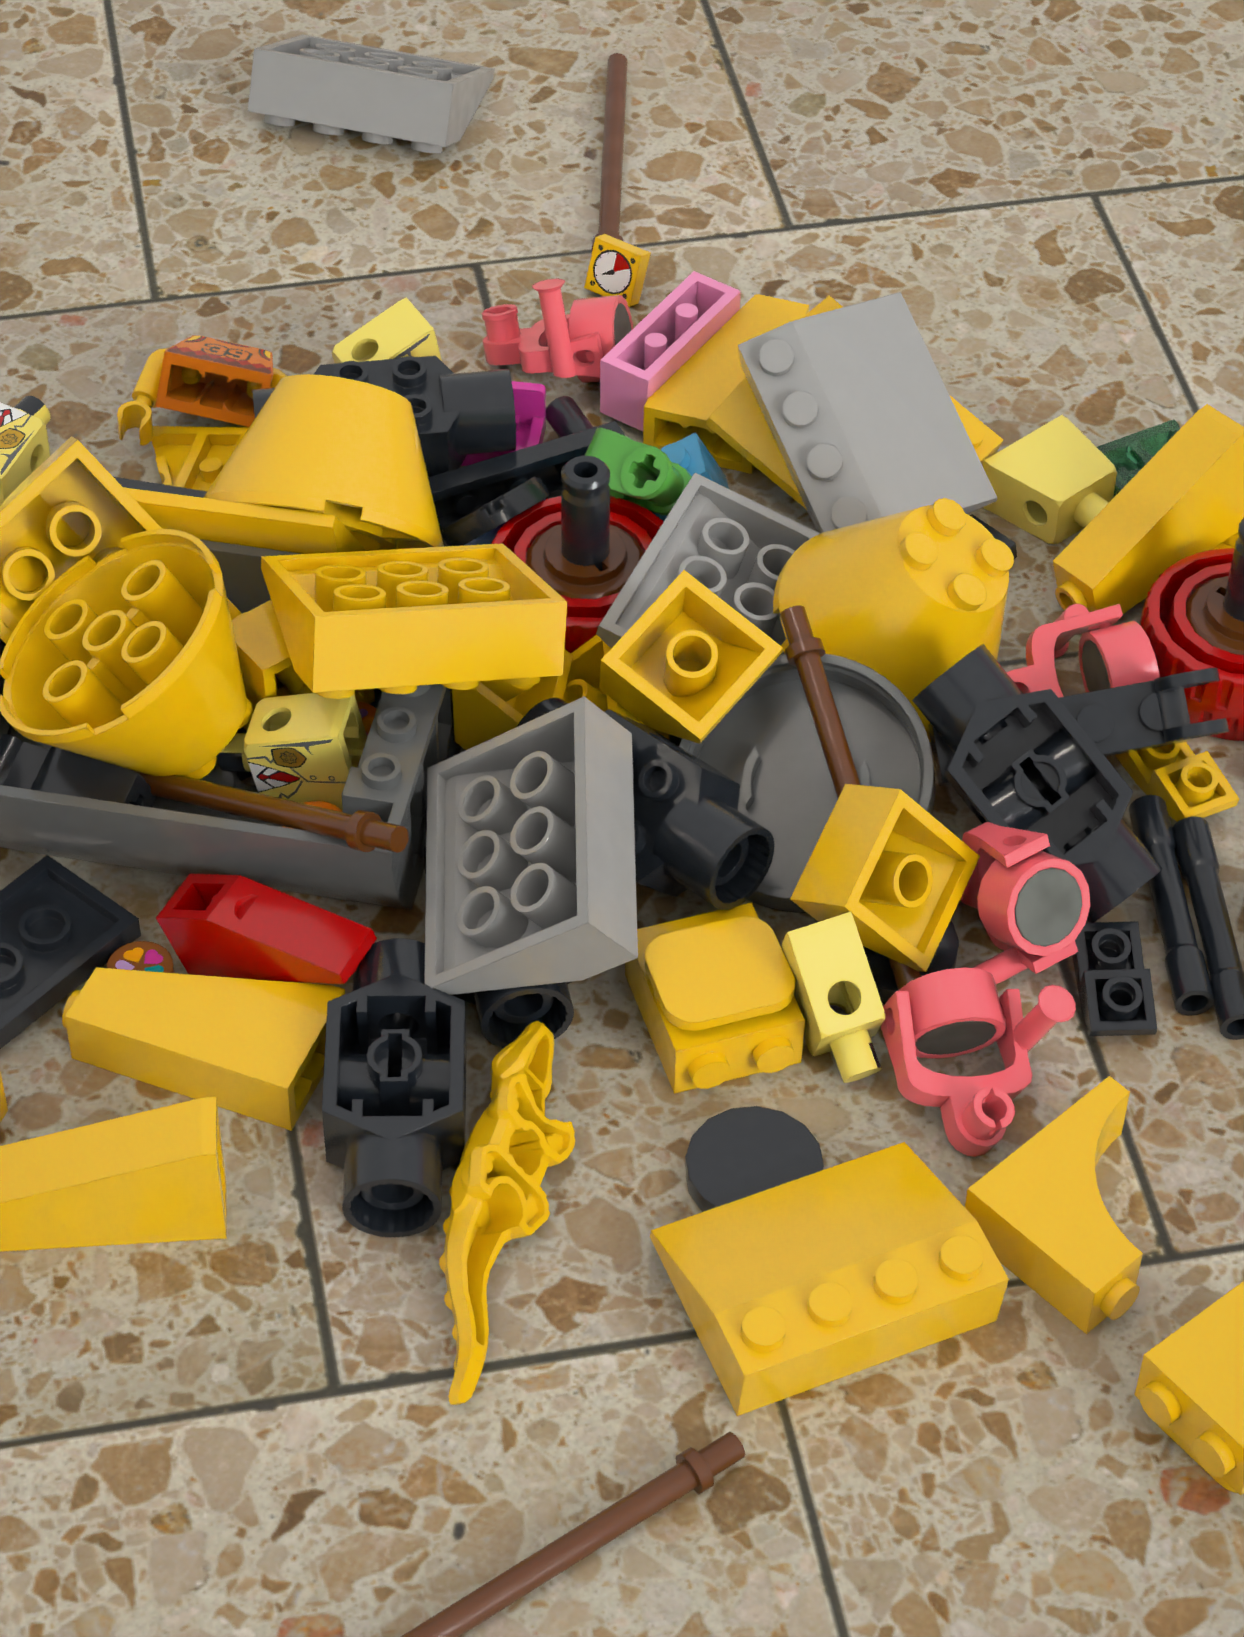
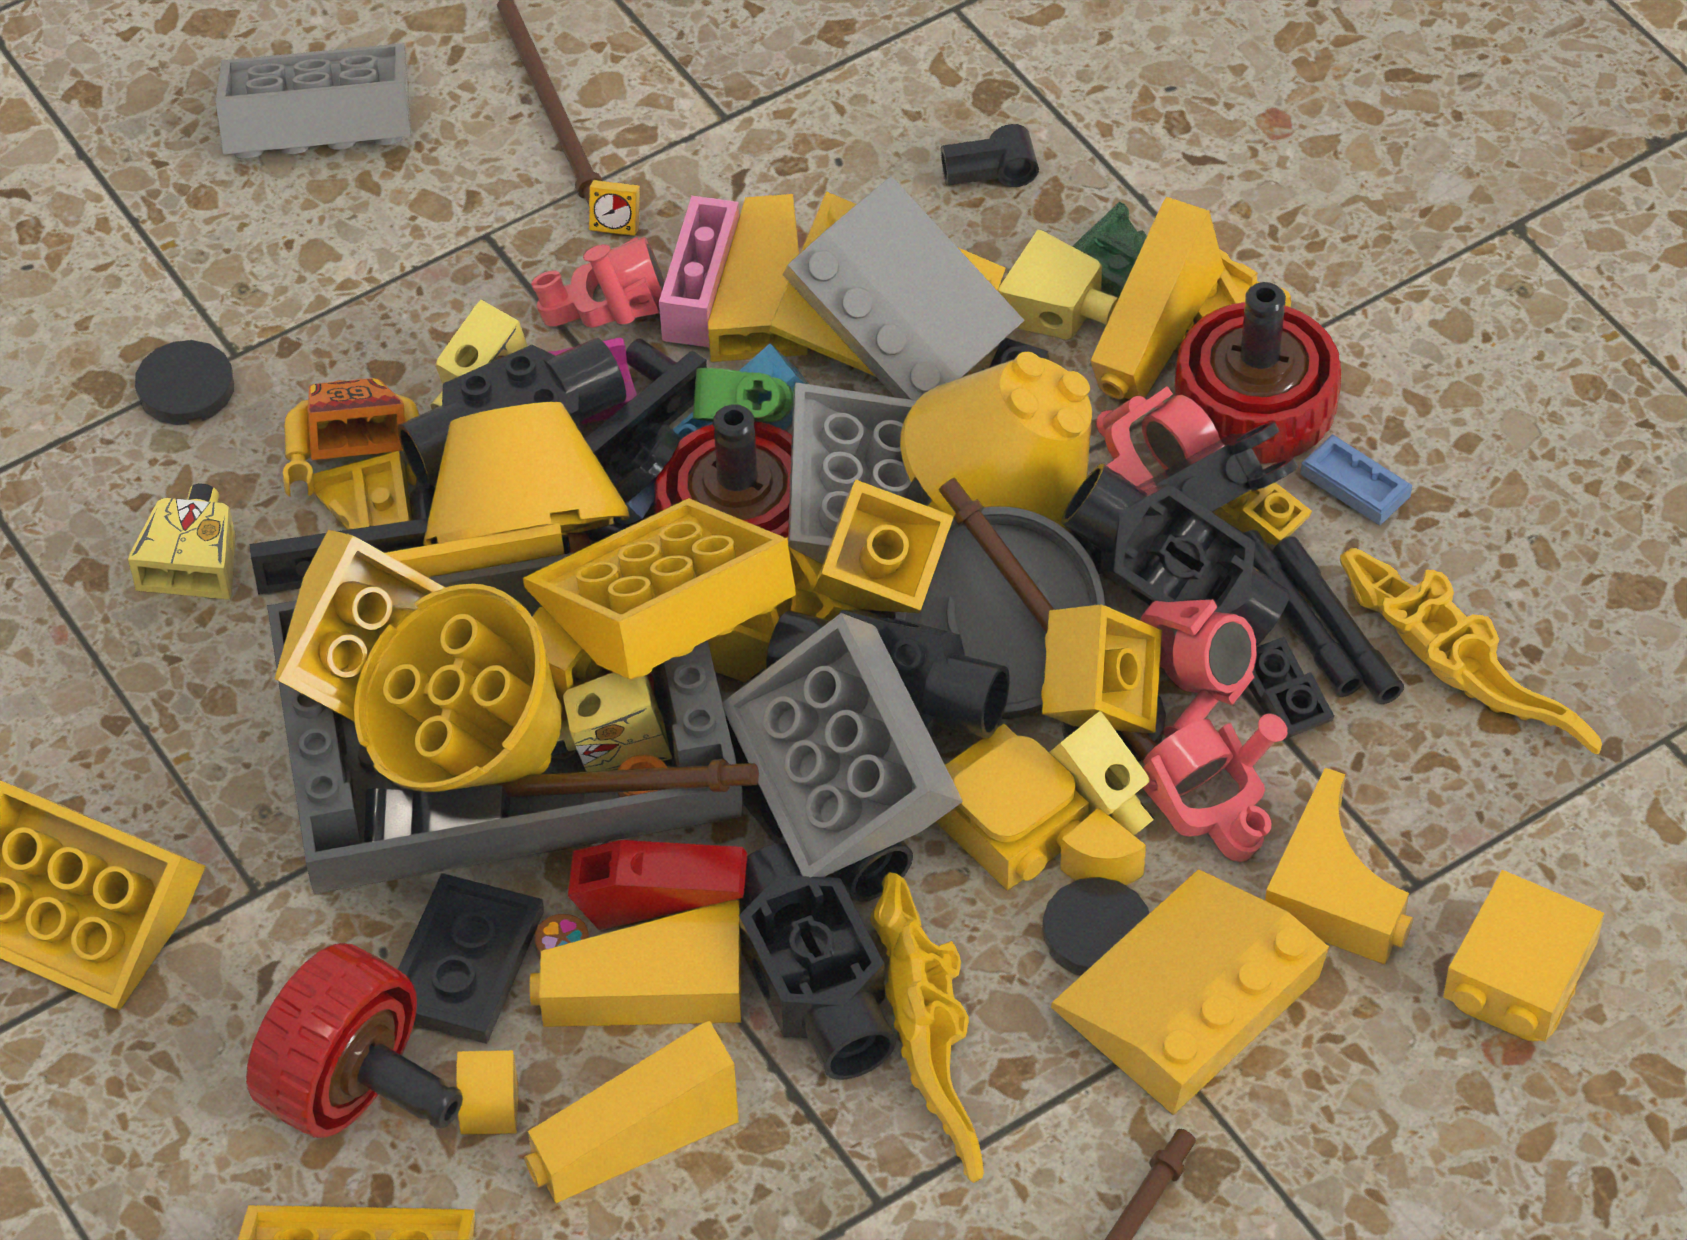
camera: 20 degrees left, 5 degrees up
(86, 306) = (184, 382): none -> black tile
(799, 1080) = (1102, 850): none -> yellow brick
(1068, 341) = (1003, 156): none -> black piece

